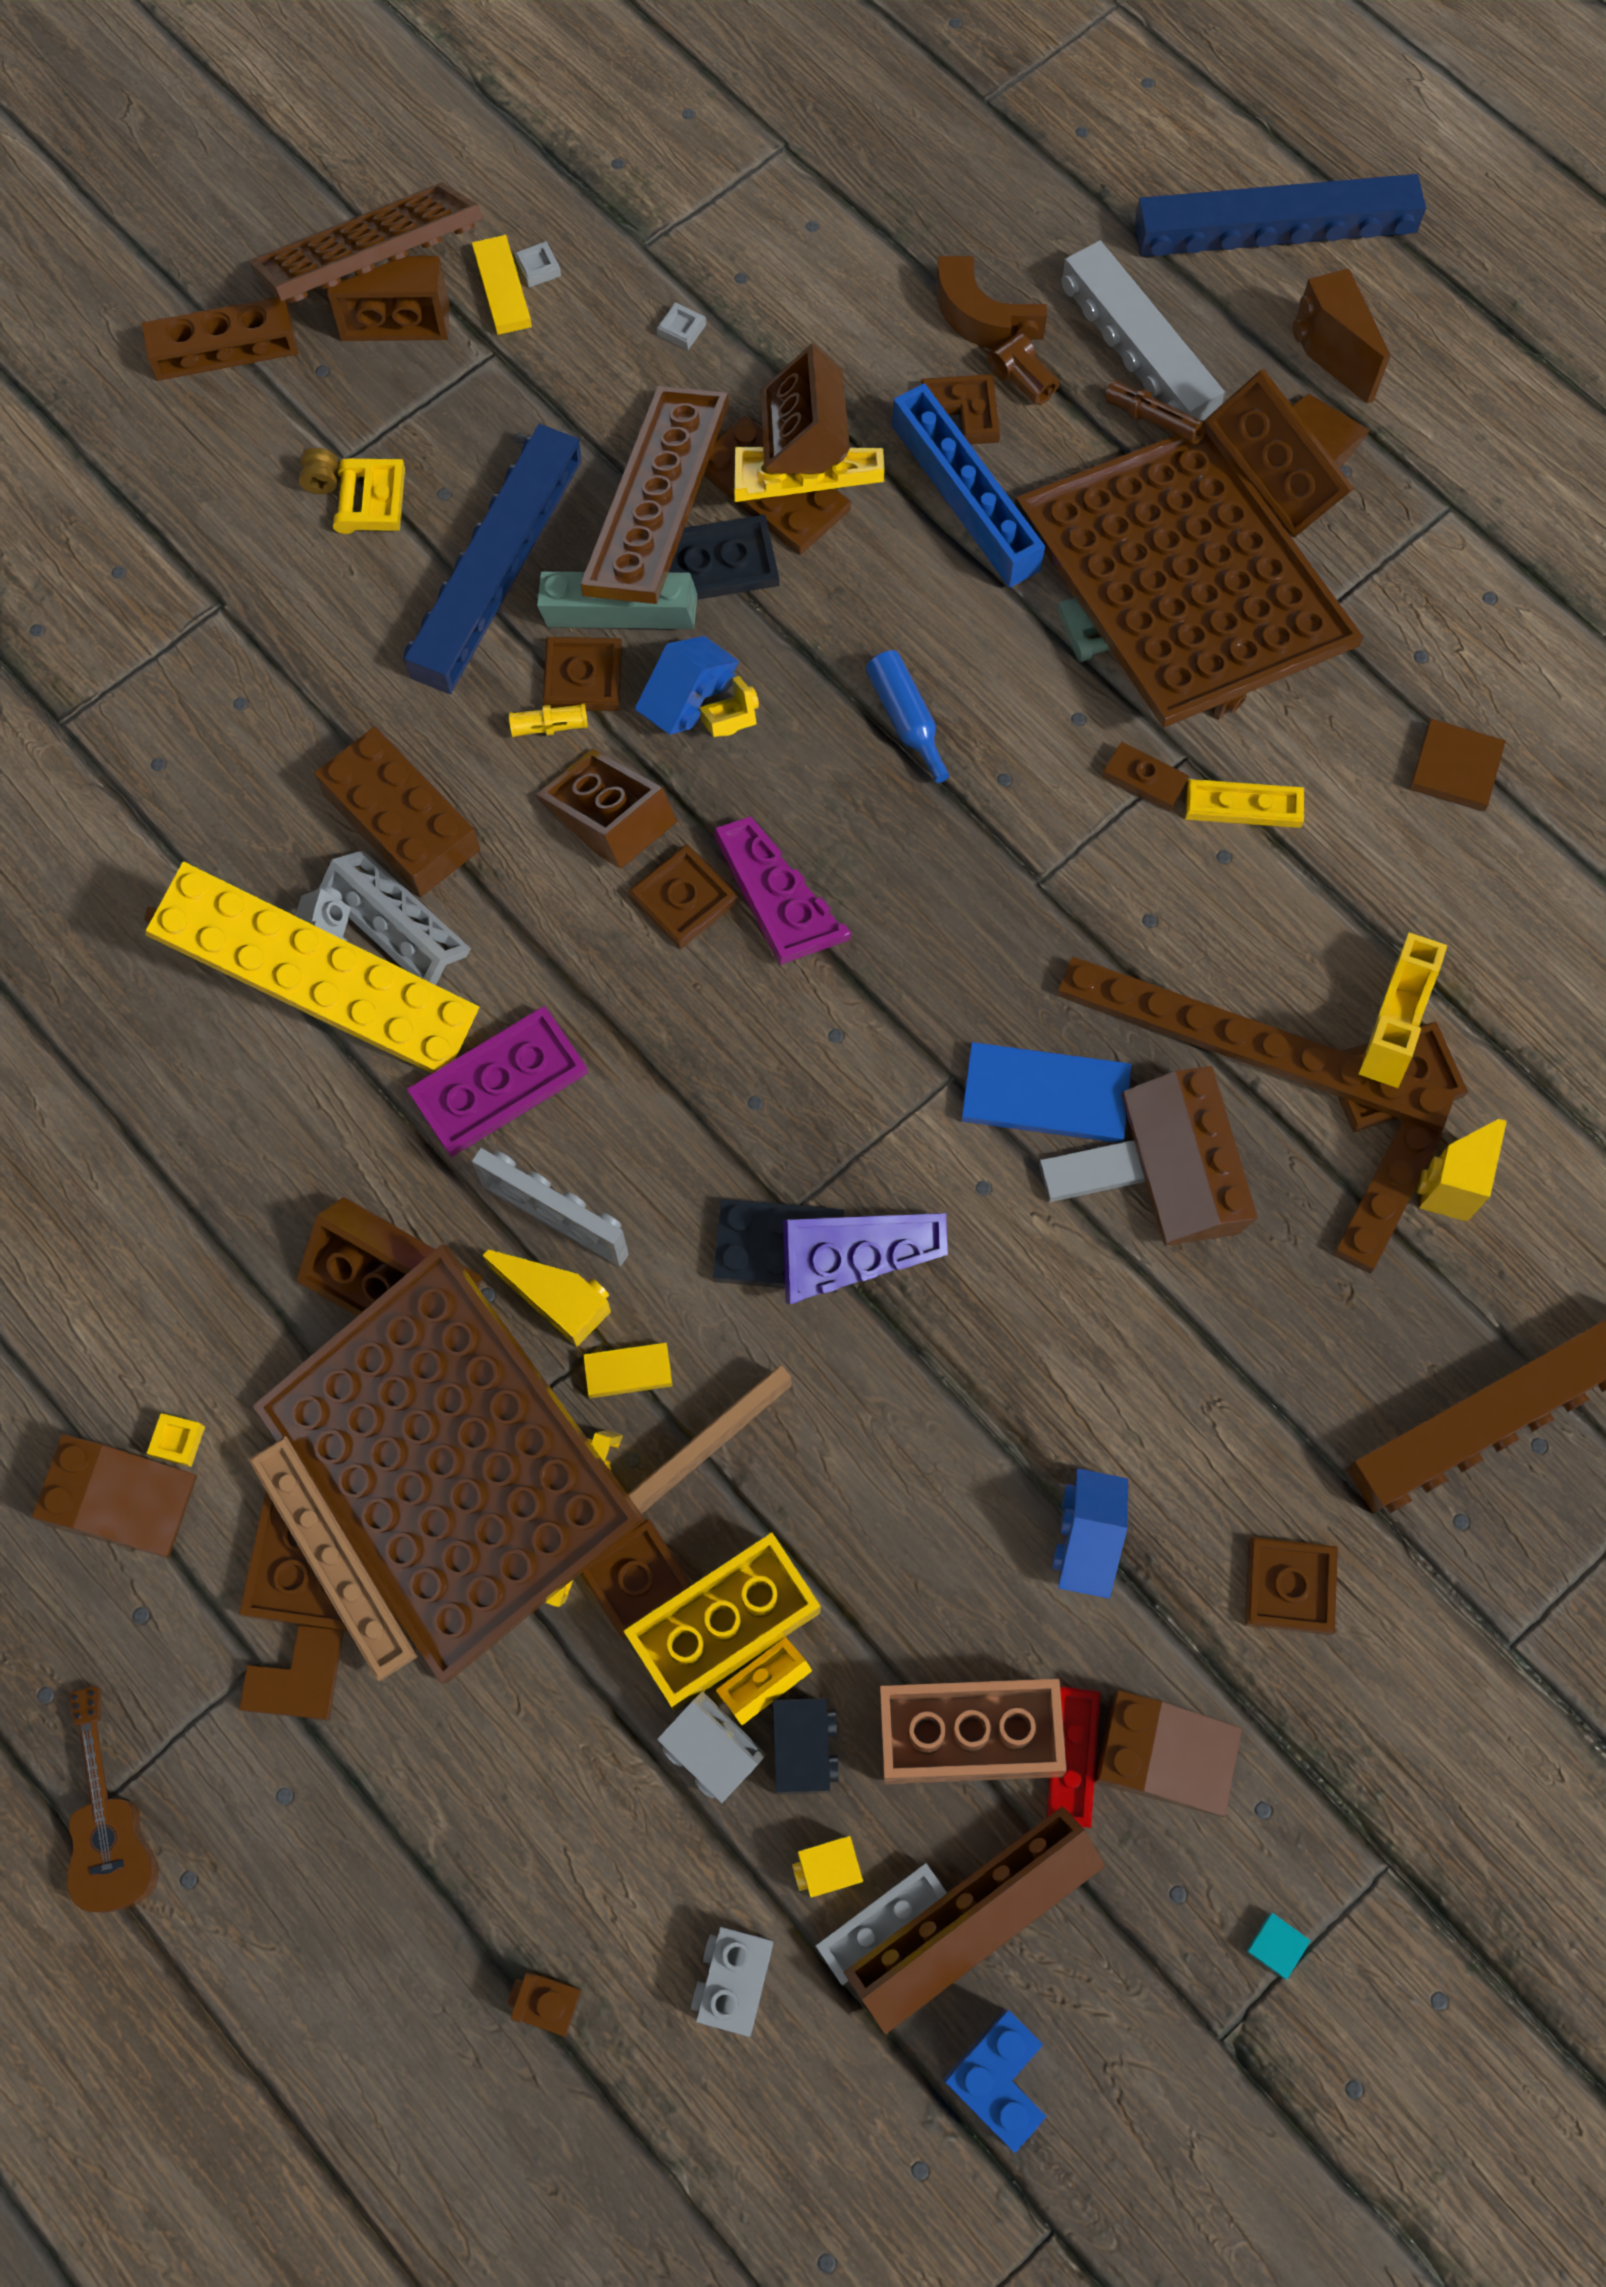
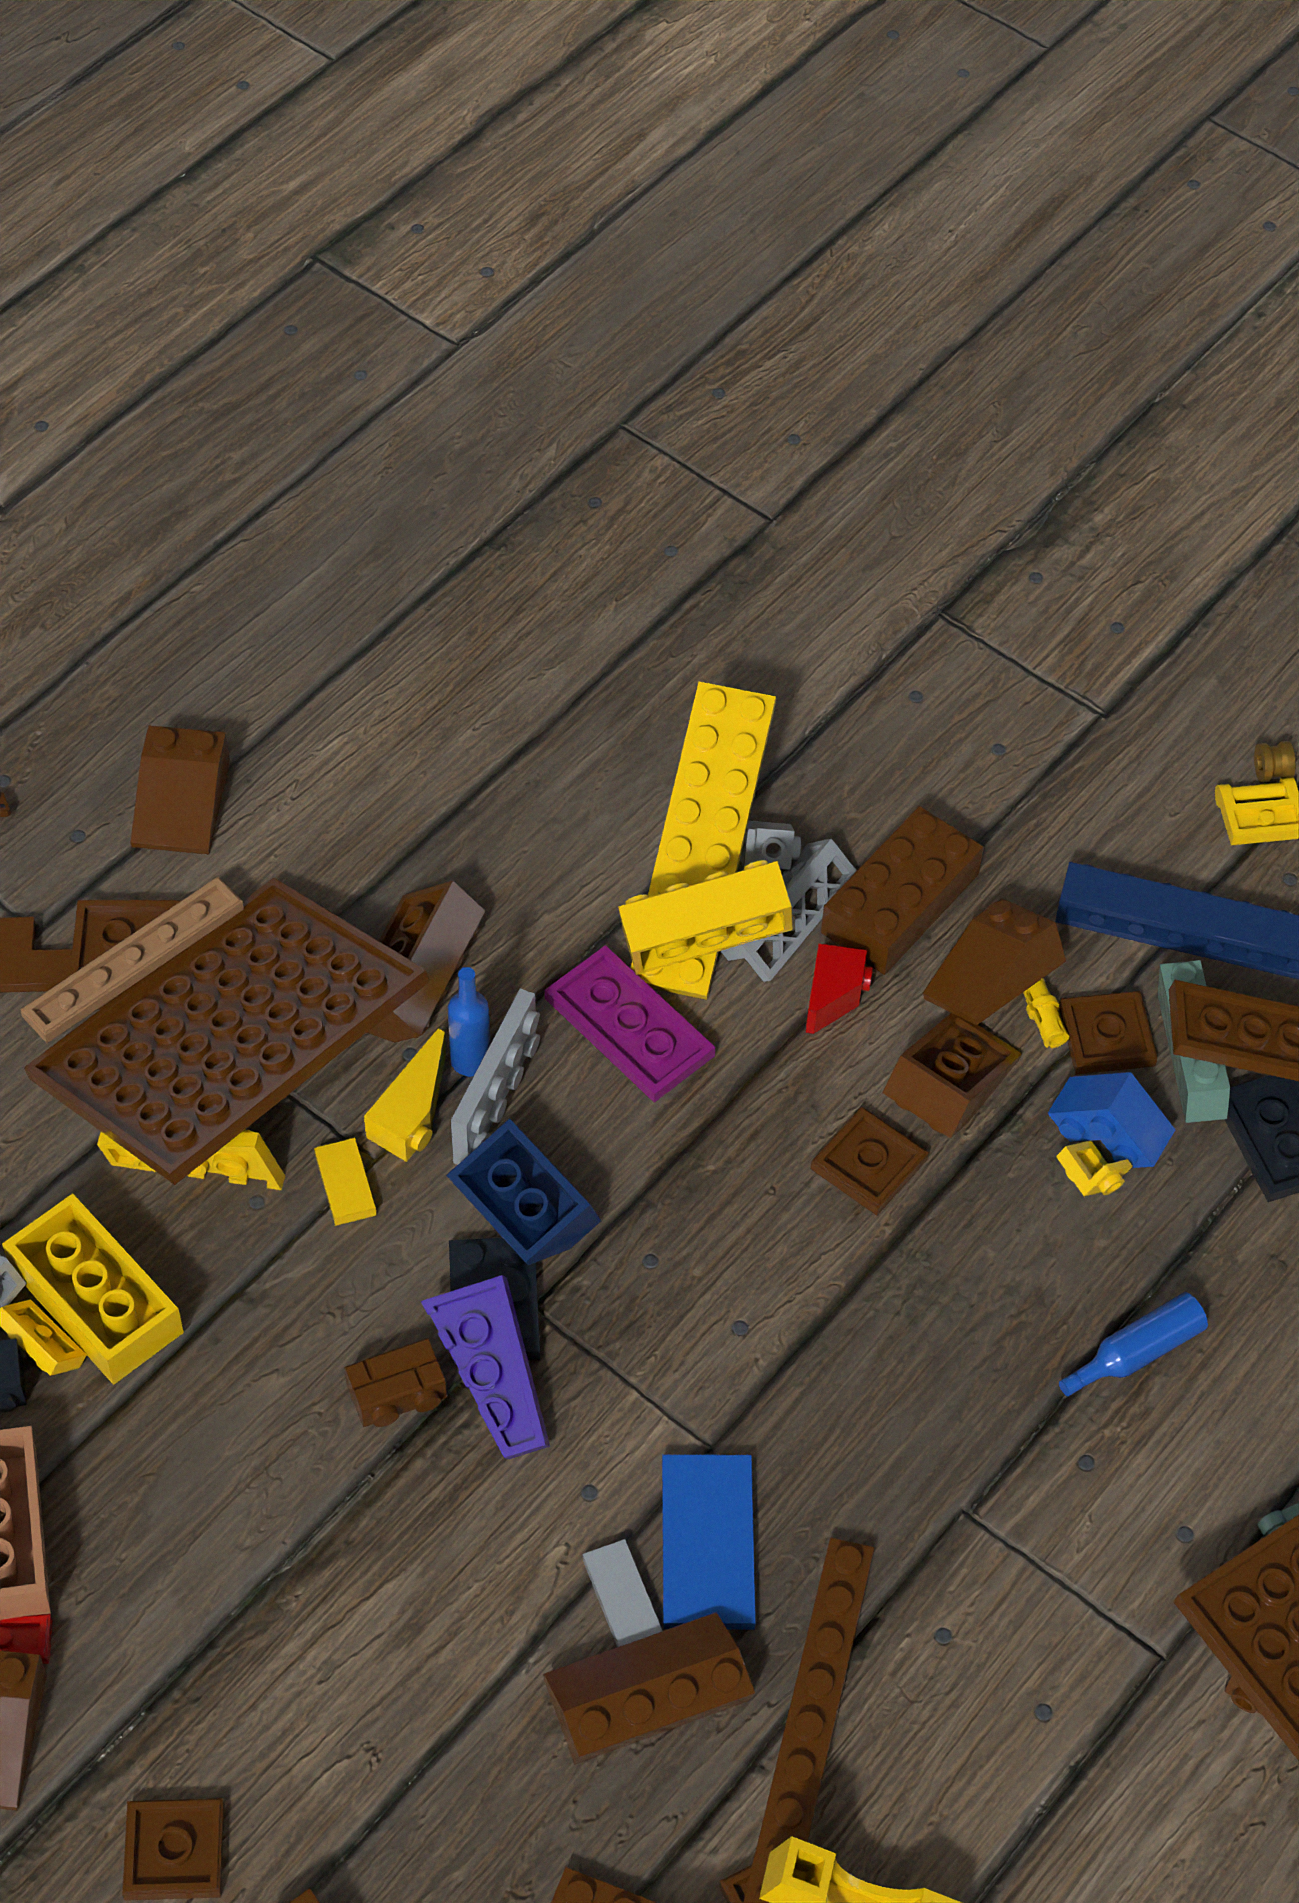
camera: 80 degrees right, 15 degrees down
(176, 1440) = (236, 827): yellow plate -> none
(422, 976) = (706, 916): none -> yellow brick
(491, 890) = (836, 984): none -> red slope
(496, 1220) = (468, 1025): none -> blue piece
(502, 745) = (995, 961): none -> reddish brown slope
(635, 1577) = (142, 1214): reddish brown tile -> none
(684, 1199) = (523, 1195): none -> dark blue slope
(710, 1439) = (267, 1249): medium nougat tile -> none
(783, 905) = (881, 1249): magenta wing -> none
(861, 1341) = (396, 1383): none -> reddish brown brick
(1094, 1531) = (211, 1619): blue brick -> none
(1145, 776) = (1124, 1610): reddish brown plate -> none
(1244, 803) = (1116, 1727): yellow tile -> none

